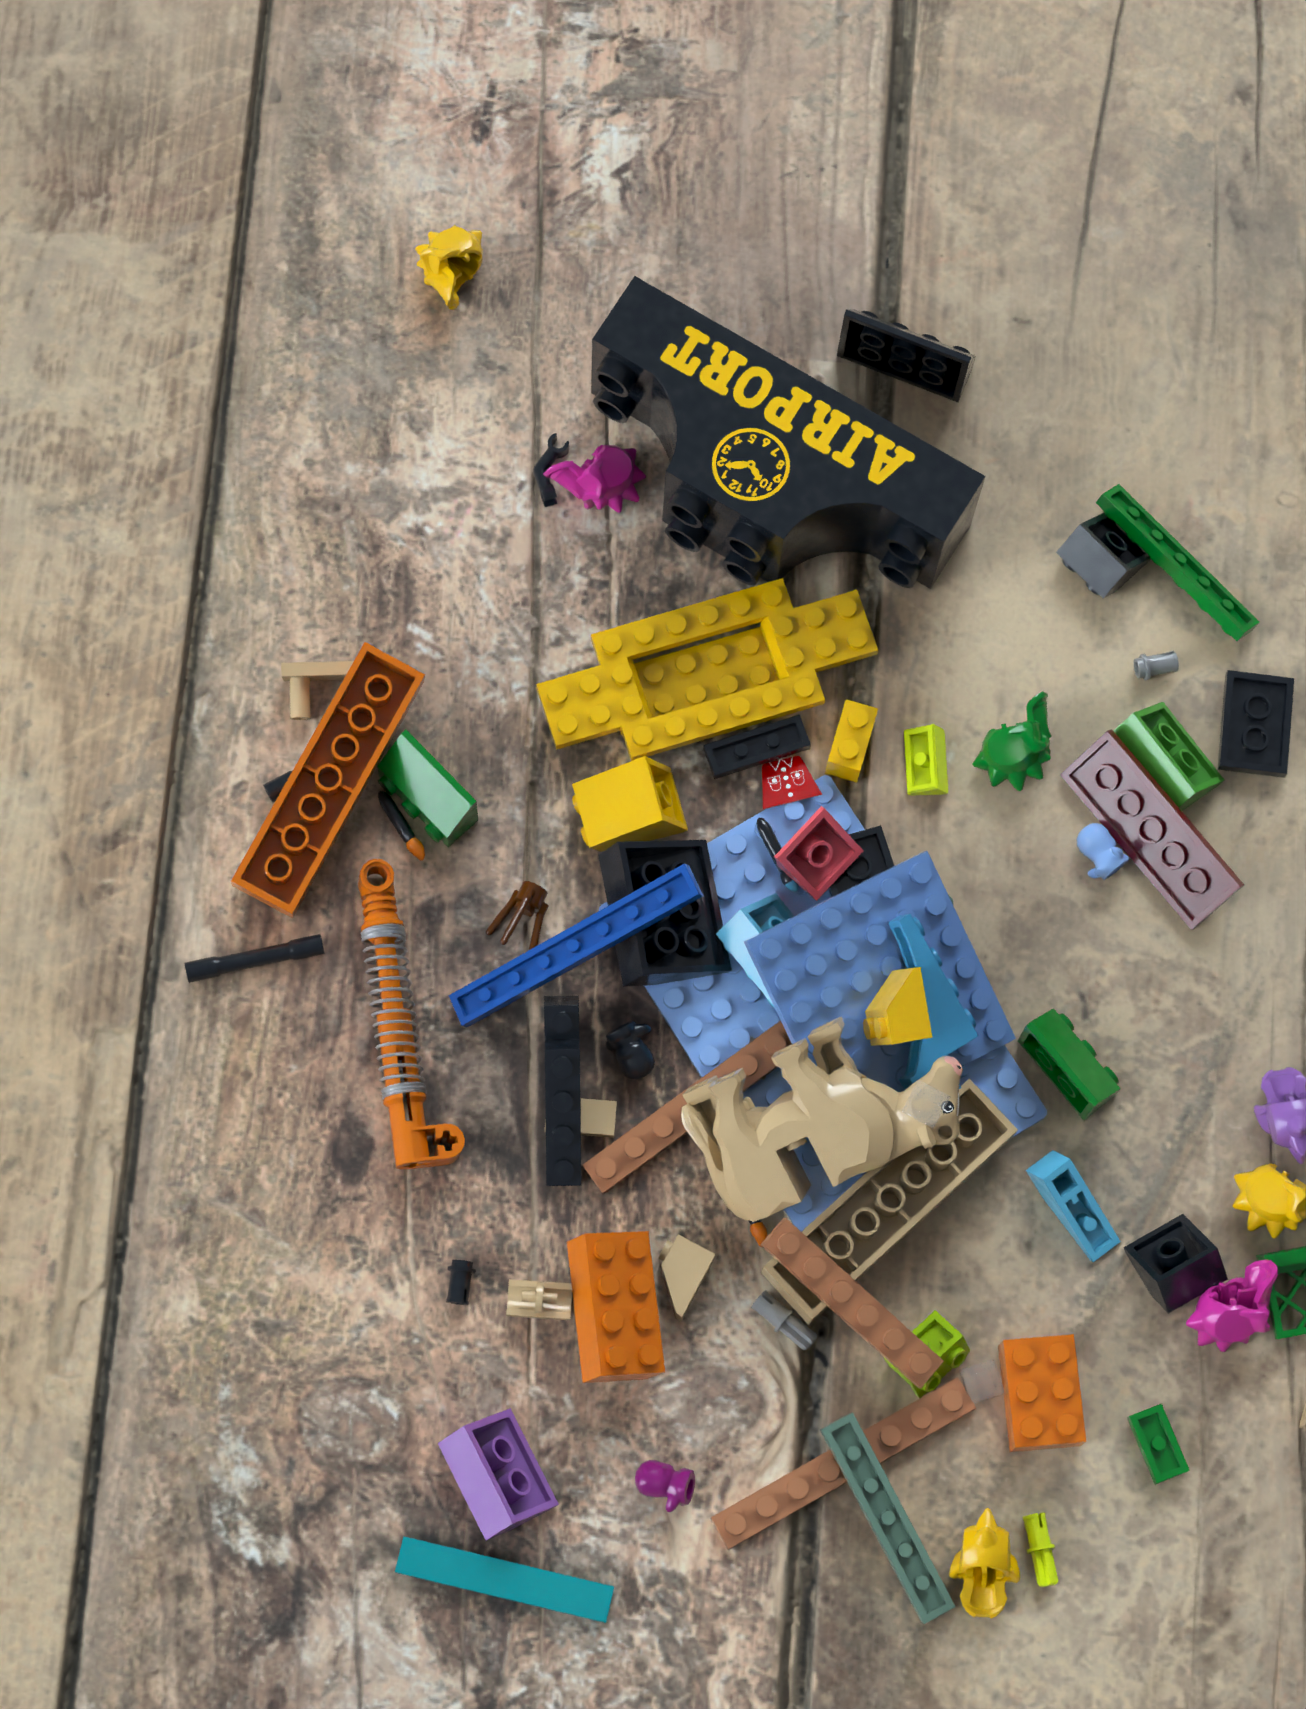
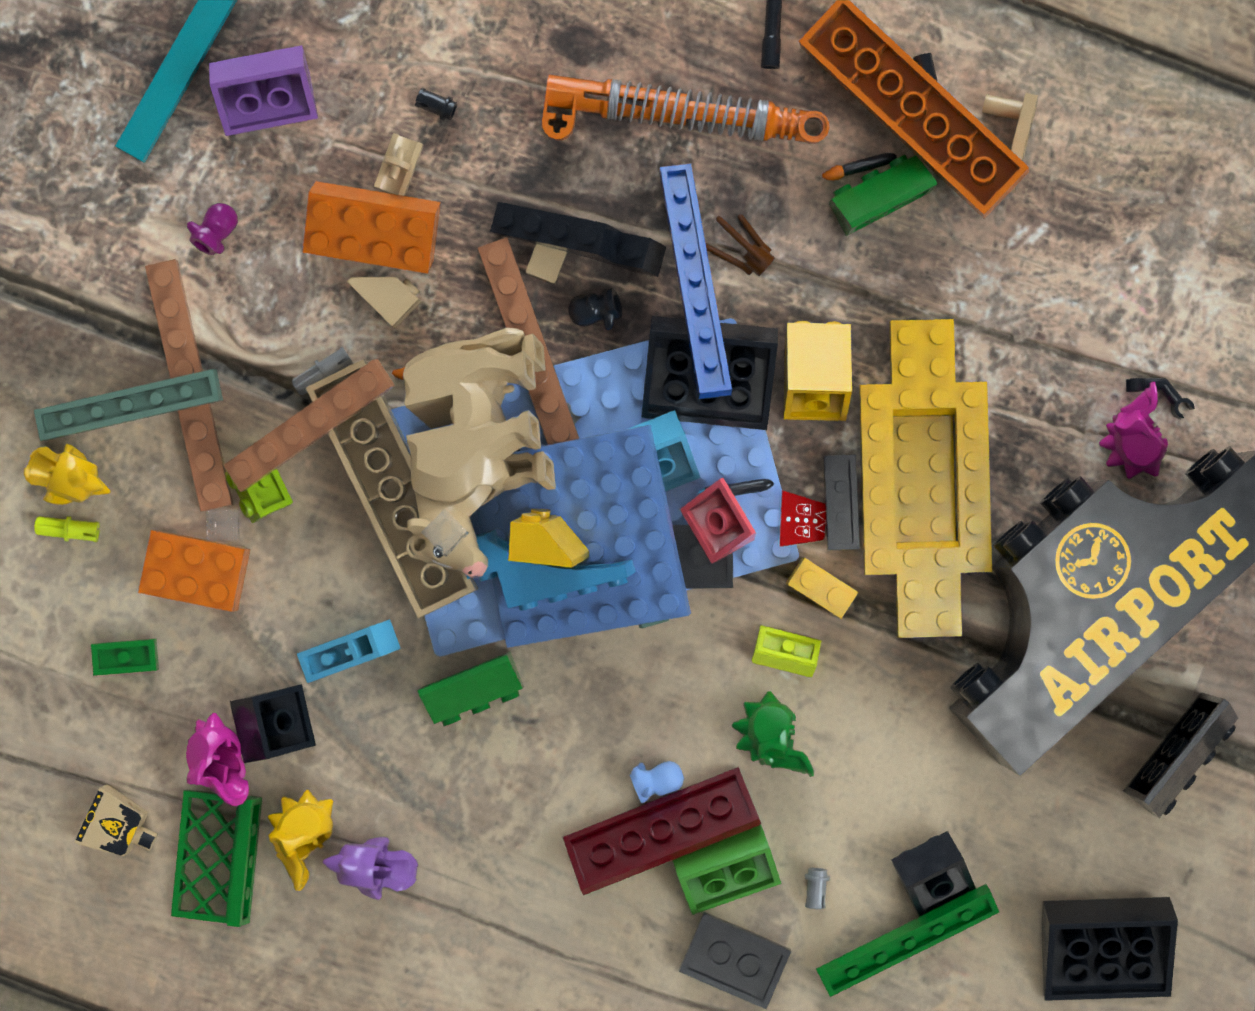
camera: 110 degrees right, 15 degrees up
(1118, 372) = (1108, 948): none -> black slope

